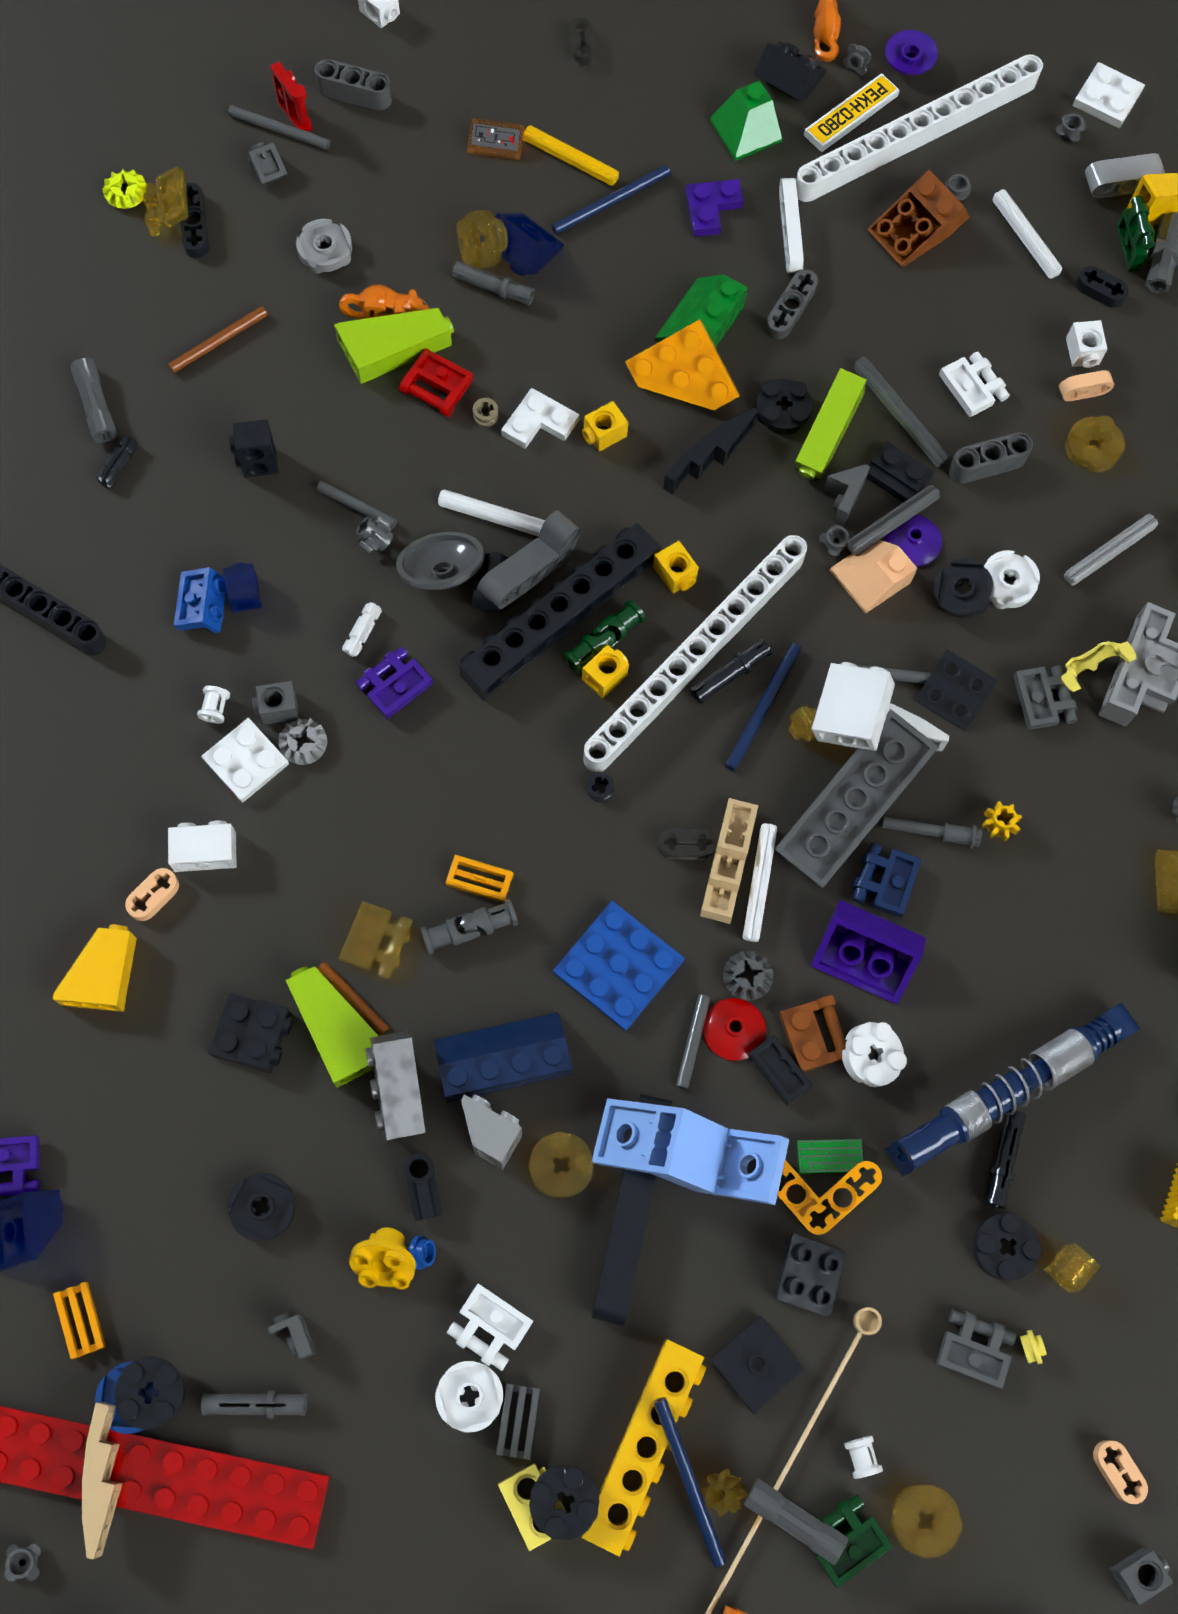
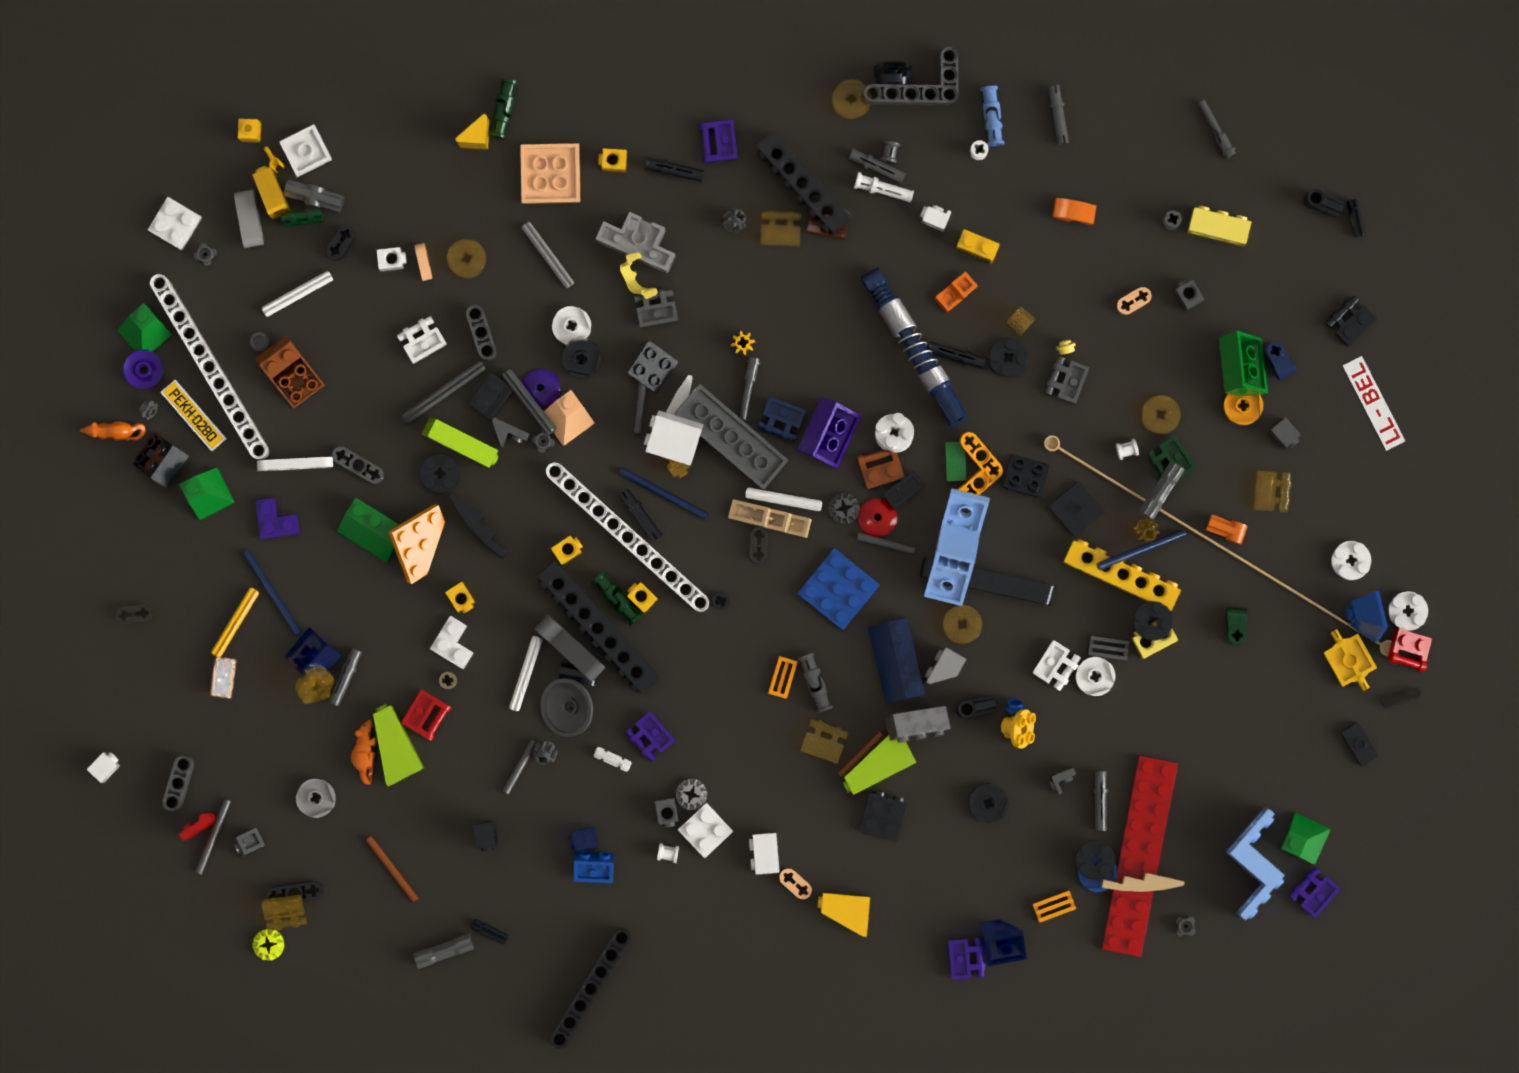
camera: 80 degrees left, 15 degrees up
(967, 56) = (144, 330): none -> green slope
(1108, 1159) = (956, 292): none -> orange slope

